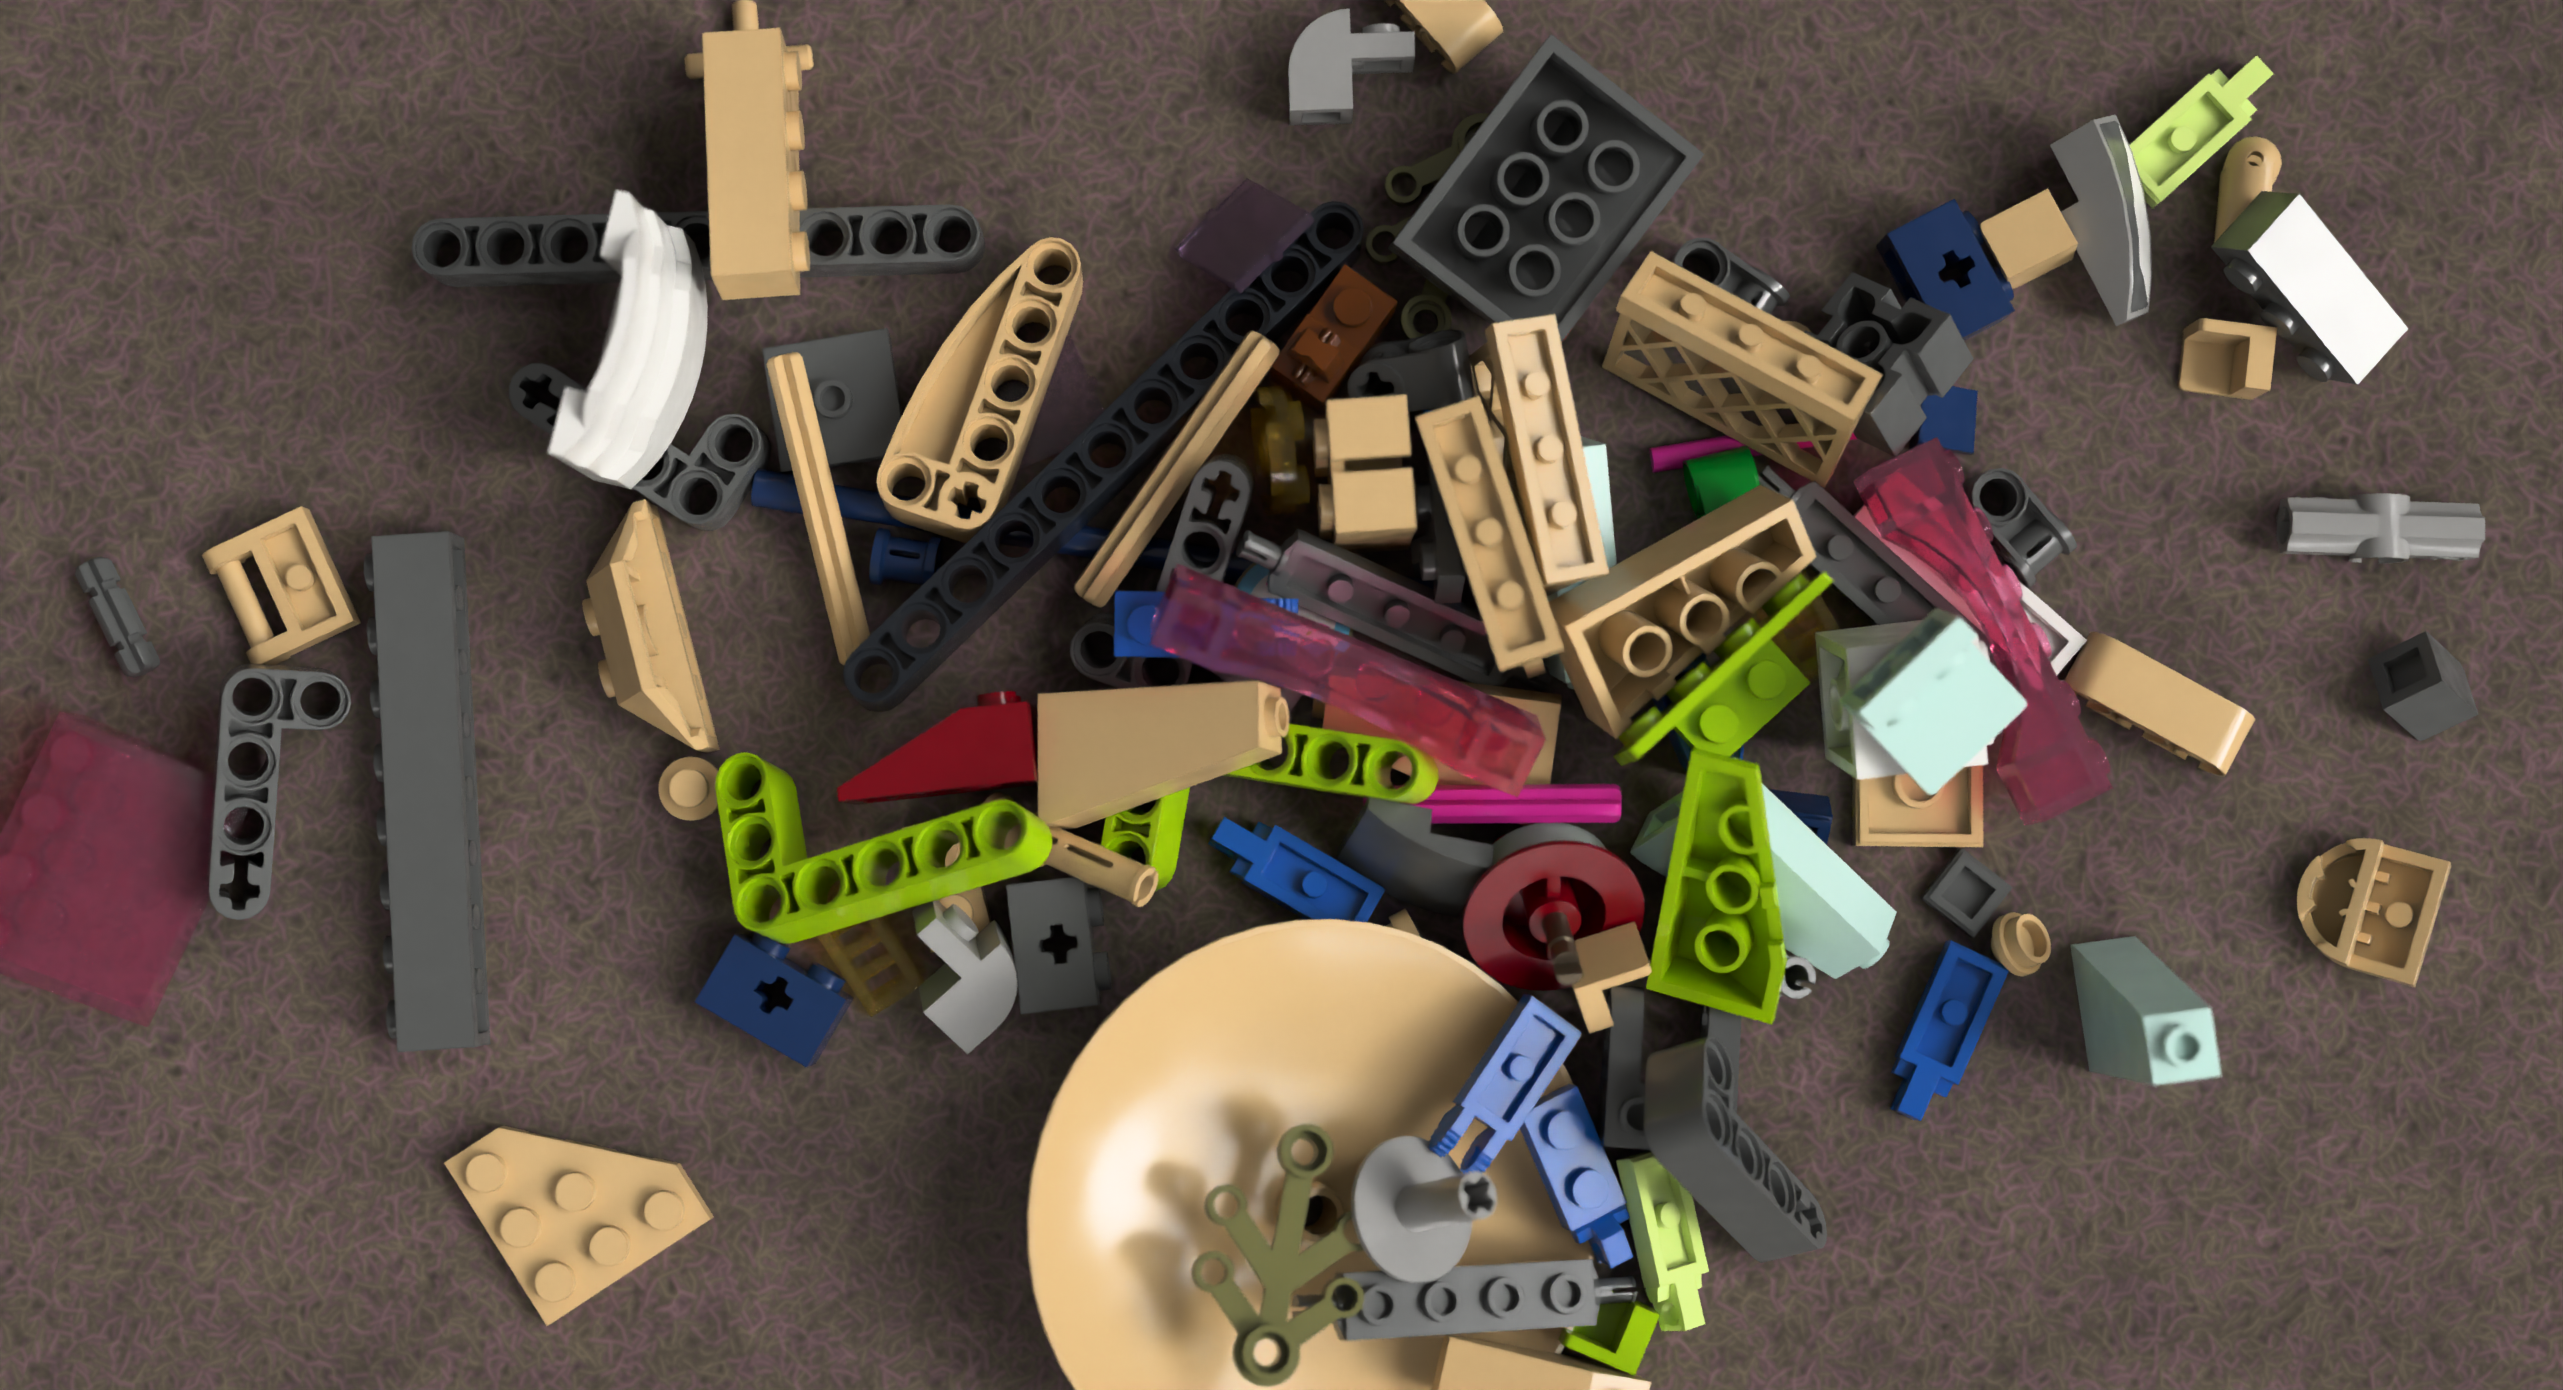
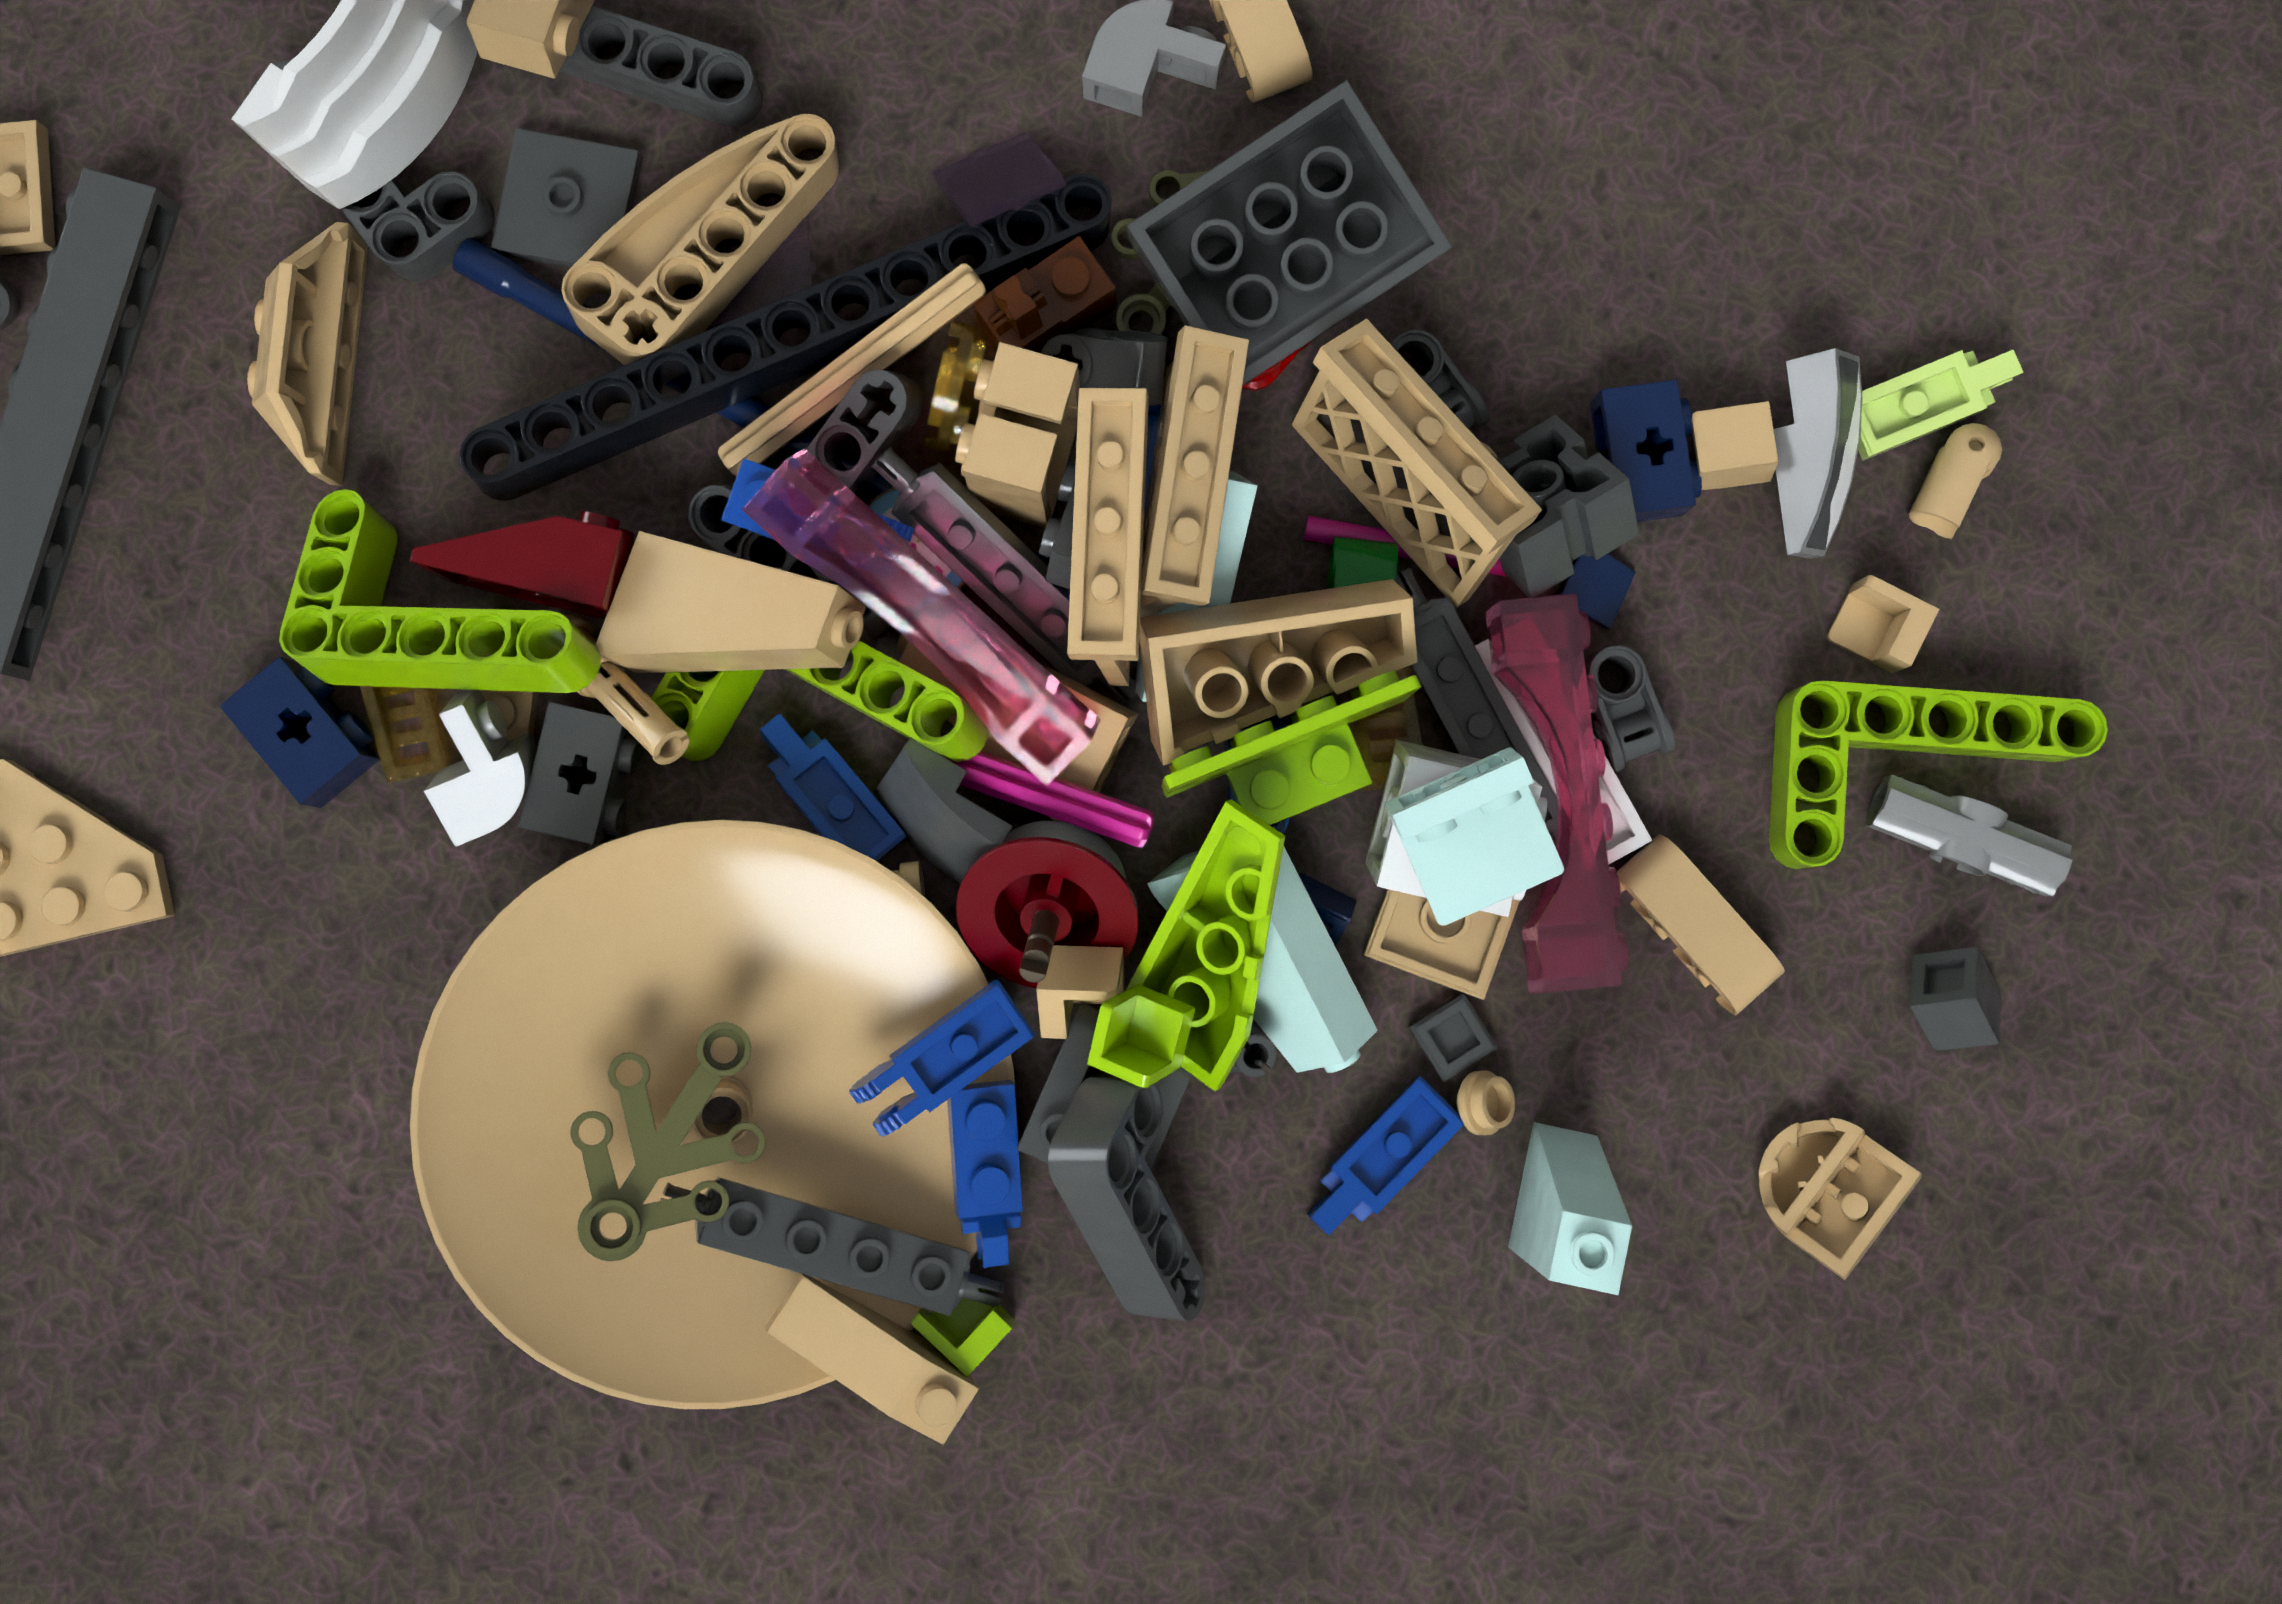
camera: 20 degrees right, 0 degrees up
(689, 788) = (292, 508): tan plate -> none
(818, 502) = (511, 275): tan axle -> none
(904, 558) = (567, 364): dark blue bush -> none
(1416, 1208) = (809, 1143): light grey piece -> none
(1665, 1240) = (1046, 1264): yellowish green hinge -> none
(1686, 997) = (1141, 1036): none -> lime panel
(2284, 448) = (1906, 729): none -> lime beam
(2308, 288) = (1983, 582): brick -> none

